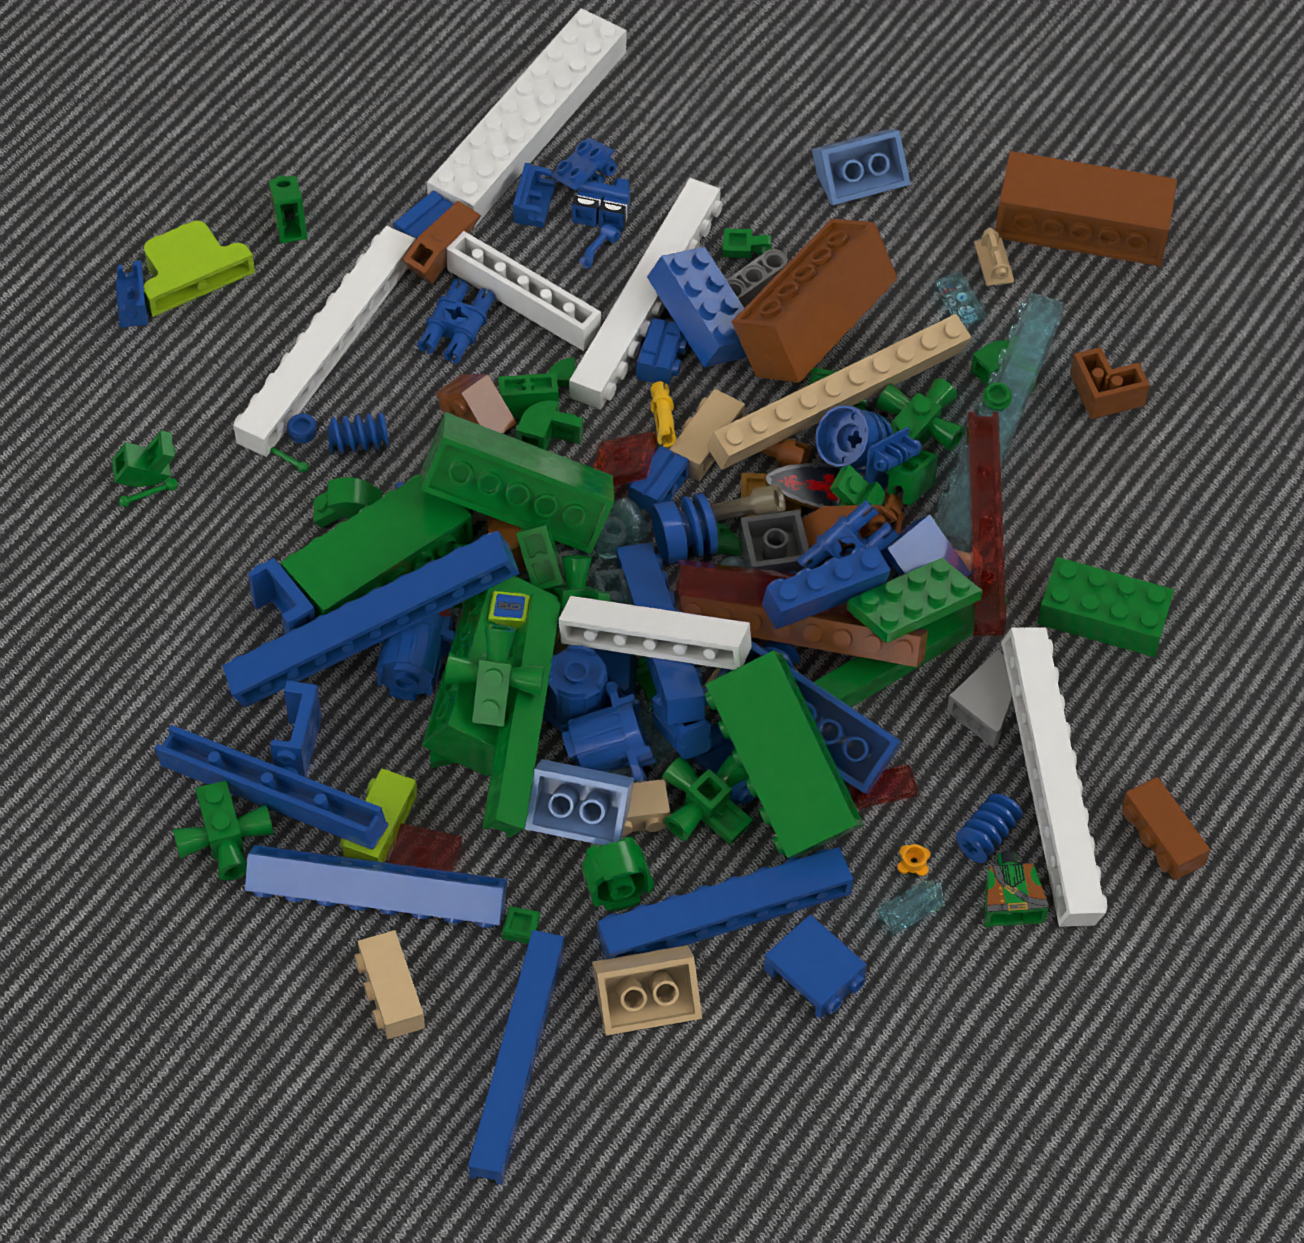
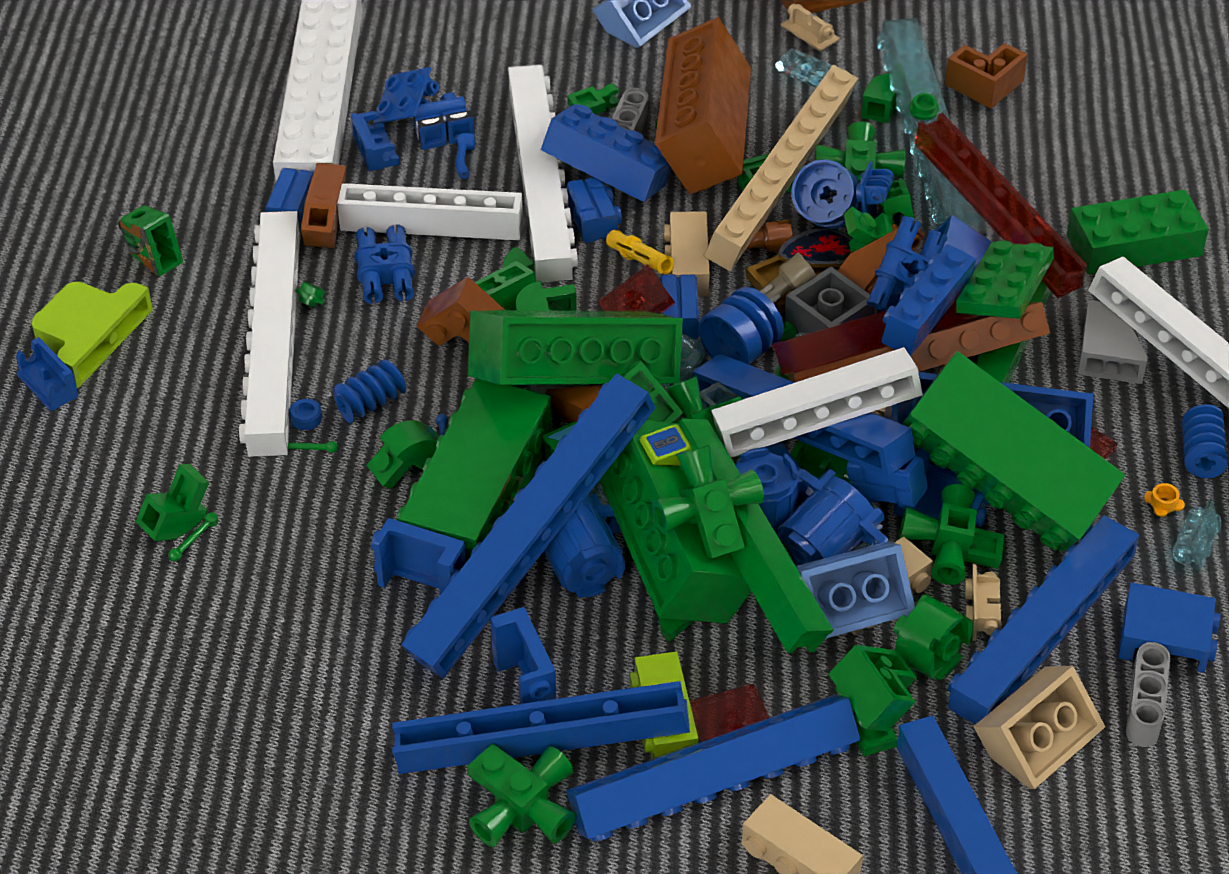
camera: 30 degrees left, 10 degrees down
(379, 320) = (310, 294): none -> green plate
(536, 887) = (875, 685): none -> green brick
(692, 855) = (981, 590): none -> tan hinge
(747, 1024) = (1148, 694): none -> light grey beam

